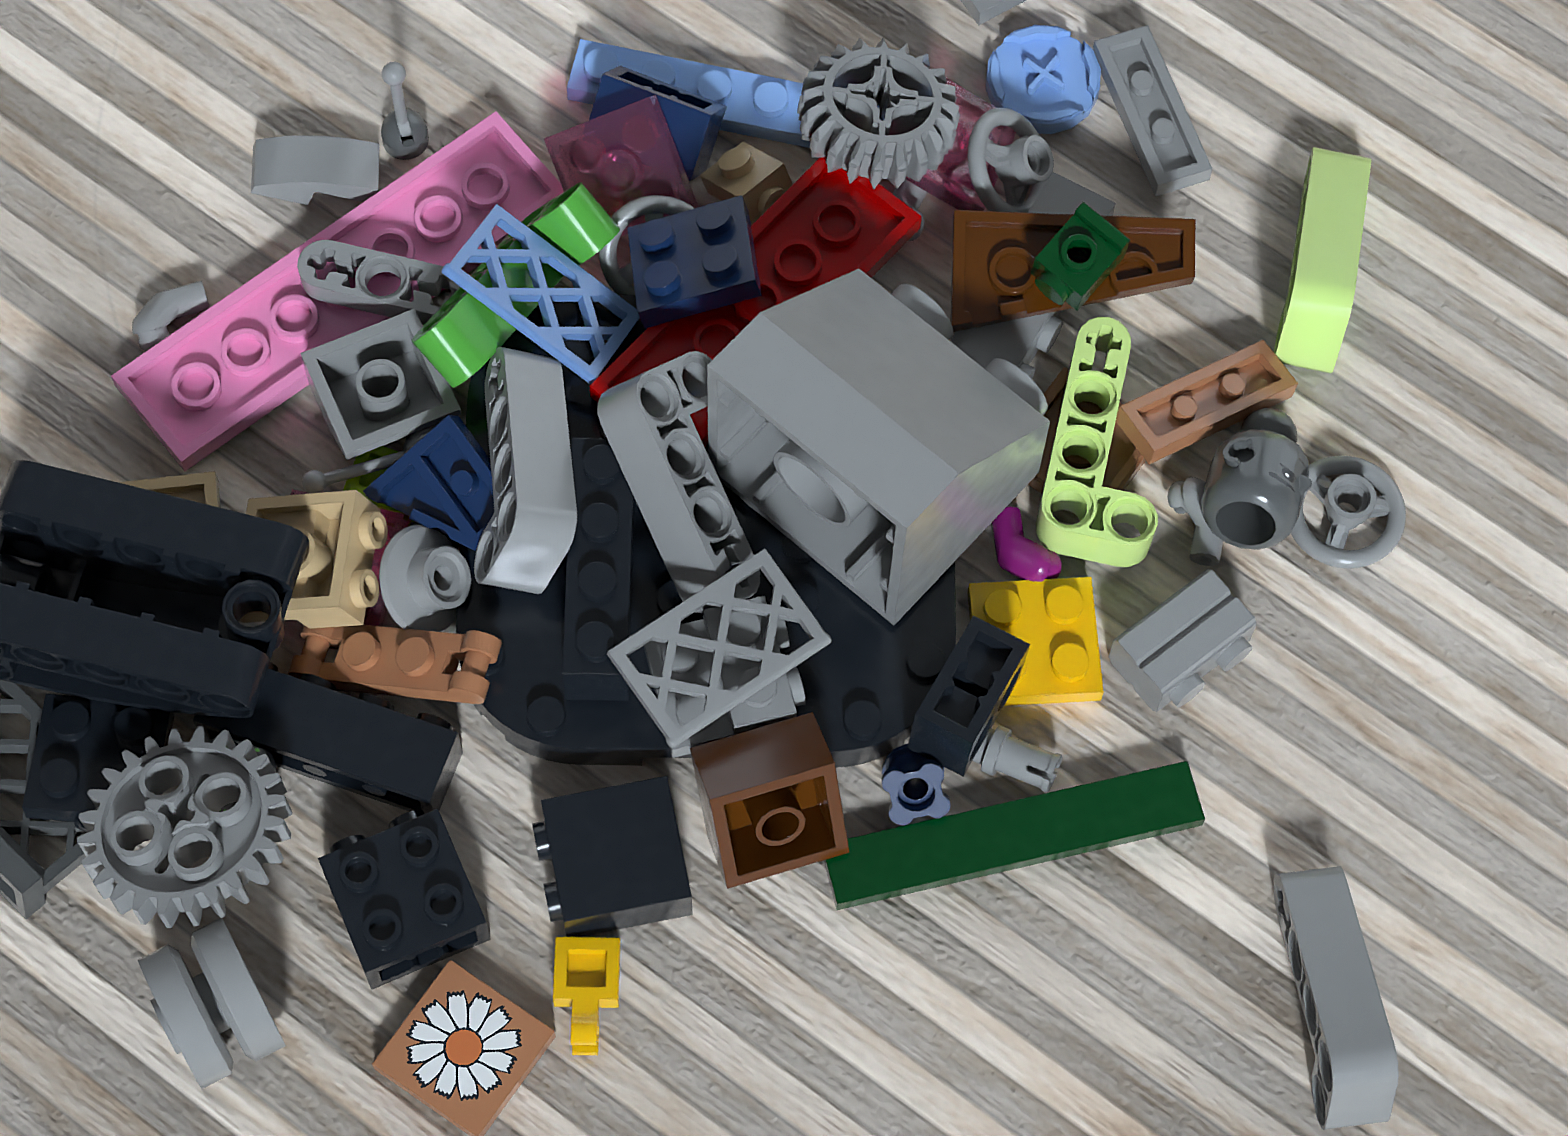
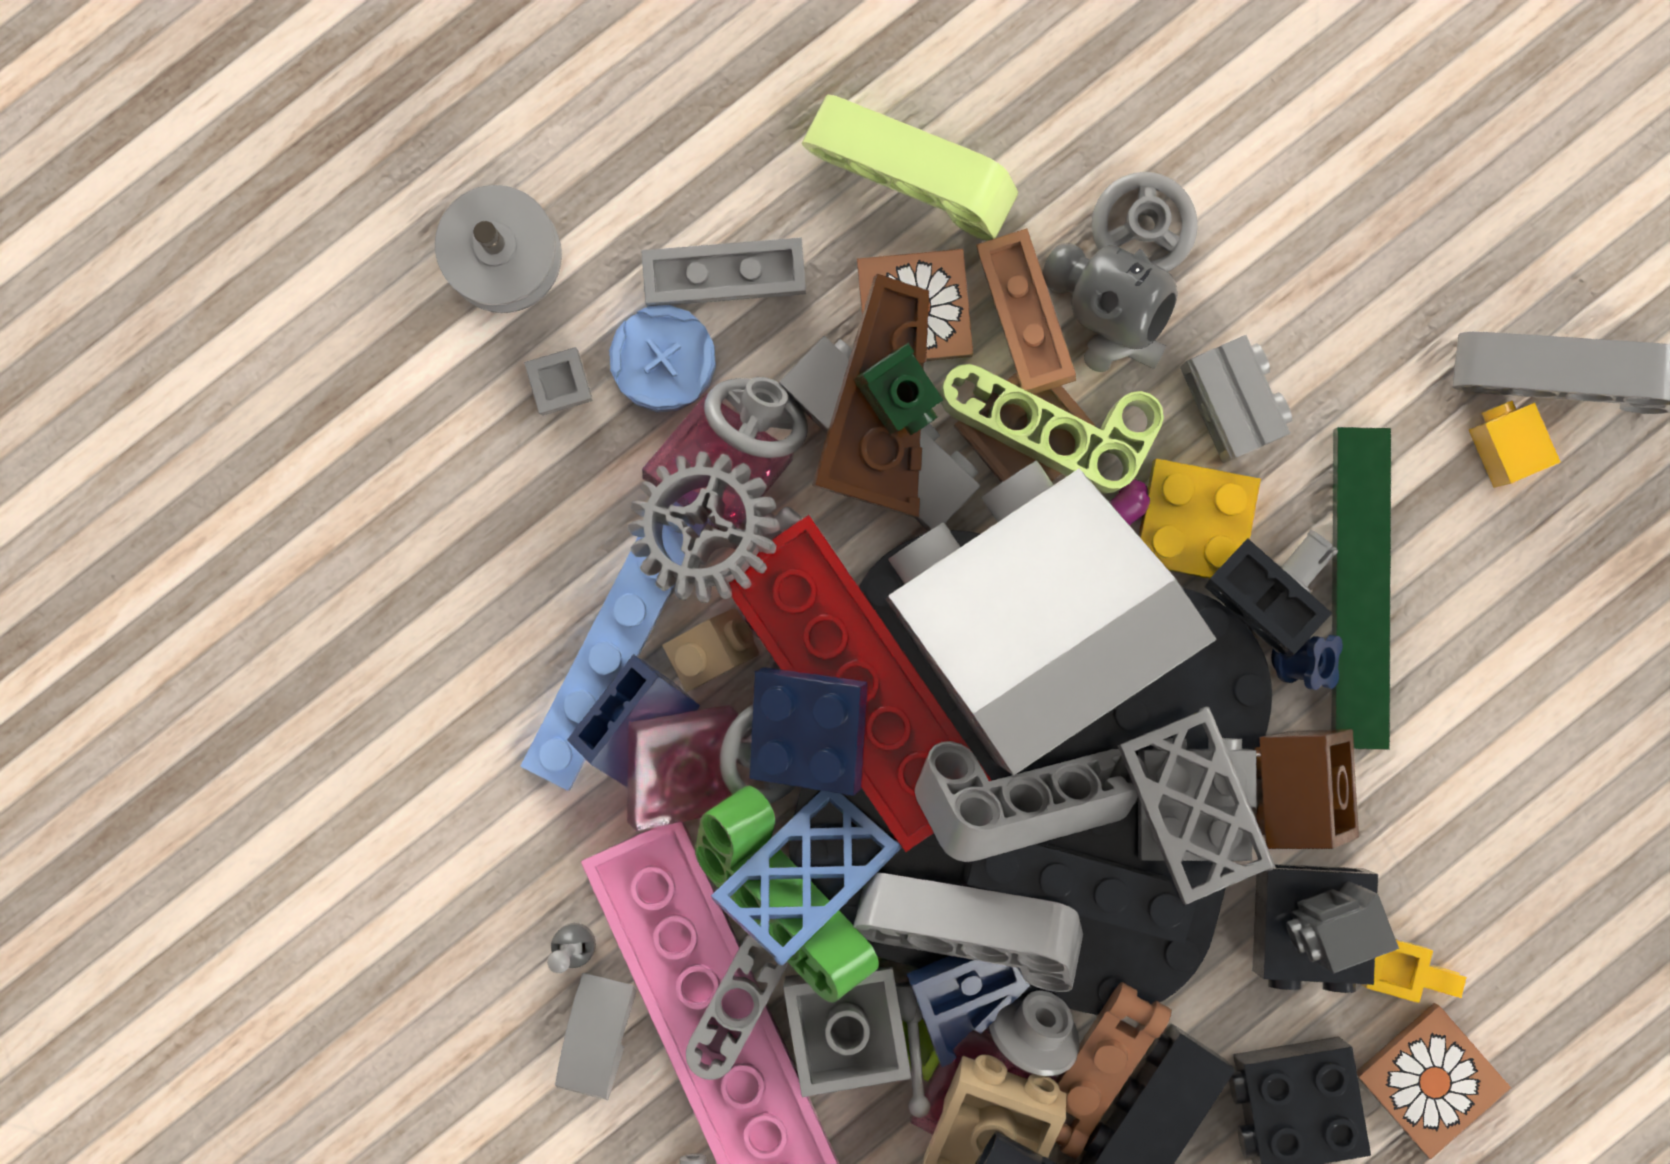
camera: 75 degrees left, 20 degrees up
(623, 832) = (1341, 927): none -> dark grey window
(1186, 319) = (945, 279): none -> tile
(1230, 955) = (1513, 443): none -> yellow brick

